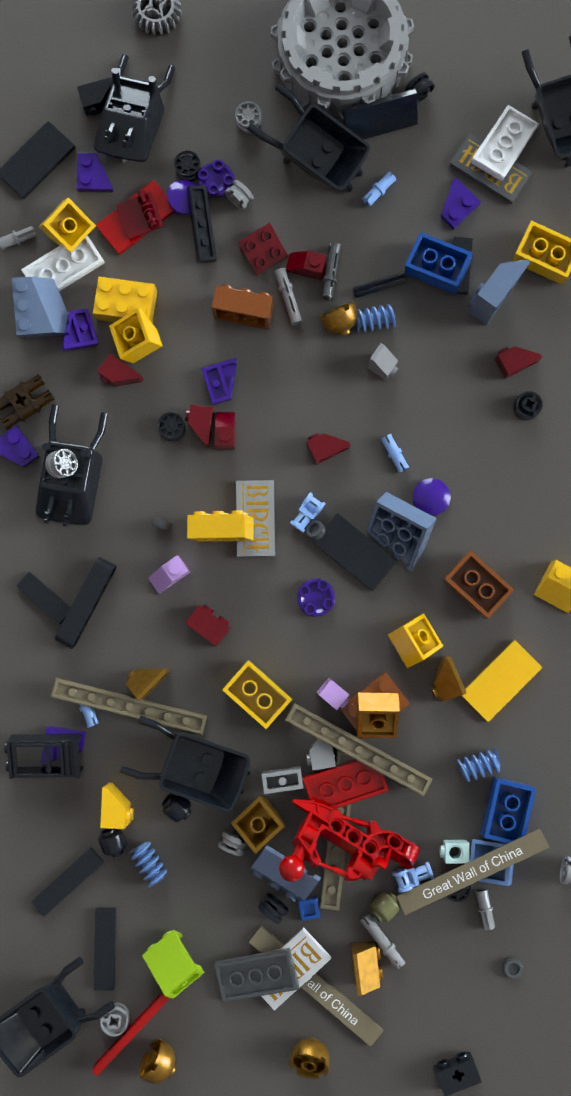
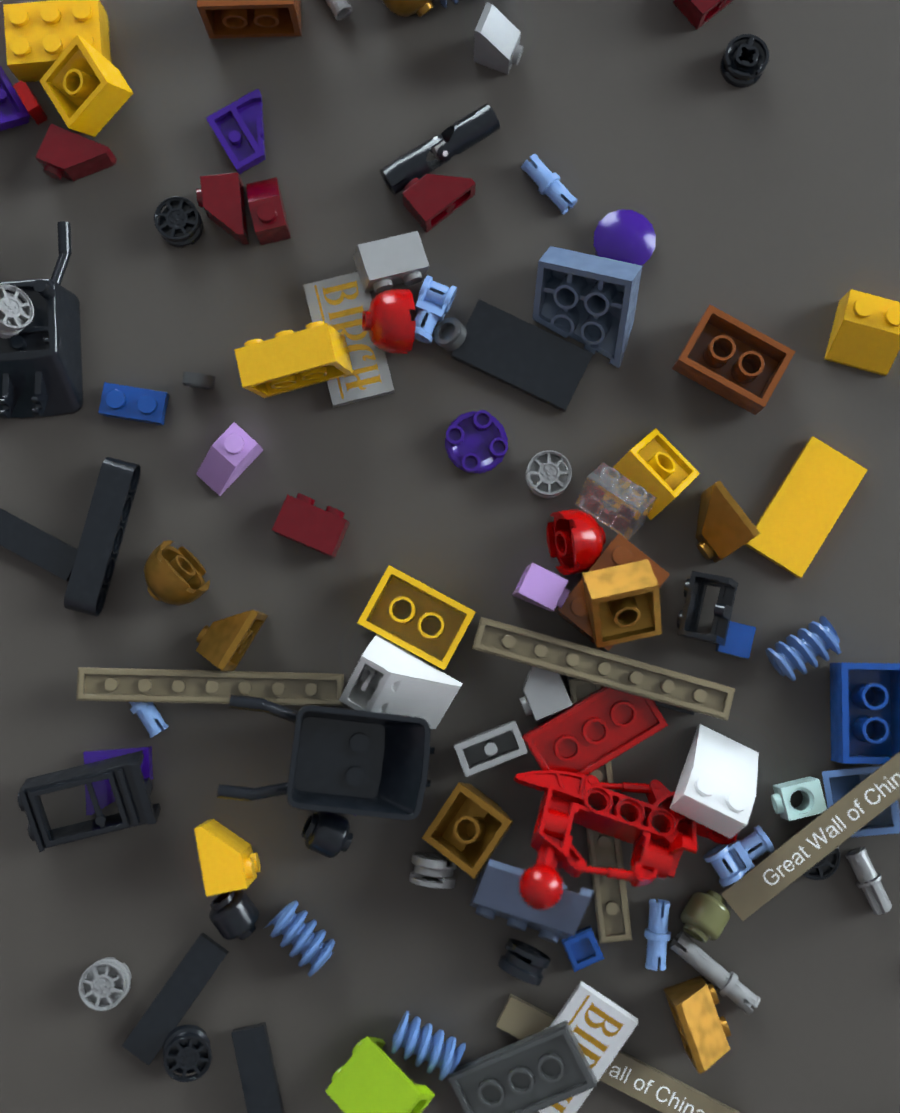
camera: 15 degrees left, 0 degrees up
(29, 863) = (105, 984): none -> light grey wheel
(67, 914) = (186, 1052): none -> black wheel
(101, 337) = (30, 102): none -> red tile
(121, 528) = (133, 403): none -> blue plate
(122, 636) = (174, 575): none -> pearl gold cylinder
(206, 943) = (427, 1046): none -> medium blue piece
(238, 731) = (399, 684): none -> white slope
(281, 516) = (390, 321): none -> red cylinder
(290, 479) = (391, 262): none -> light grey brick
(338, 417) = (450, 142): none -> black piece
(353, 626) = (548, 474): none -> light grey wheel
(354, 911) = (657, 934): none -> light blue pin
(360, 670) = (574, 540): none -> red cylinder
(388, 652) = (615, 500): none -> clear brick
(409, 831) = (717, 783): none -> white slope
(416, 730) = (694, 593): none -> black window
(441, 749) = (738, 640): none -> blue tile

